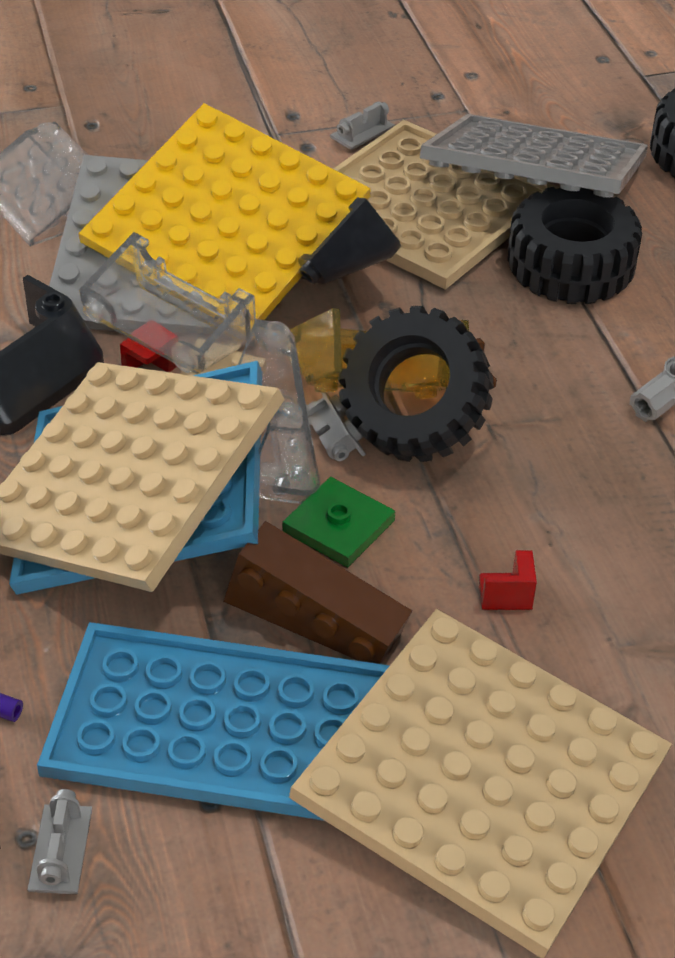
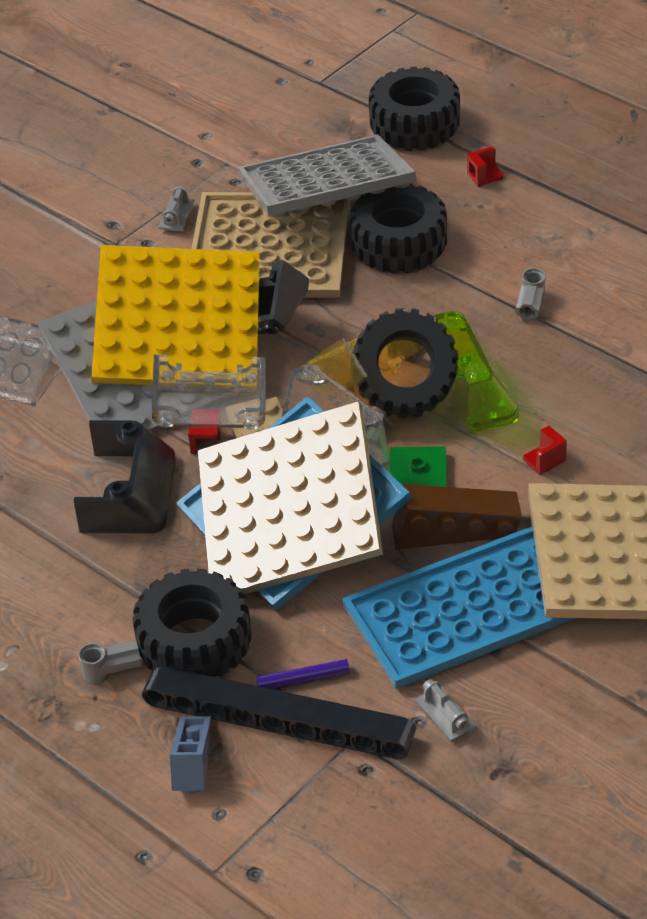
camera: 30 degrees left, 0 degrees up
(503, 462) = (489, 396): none -> clear neon green windscreen

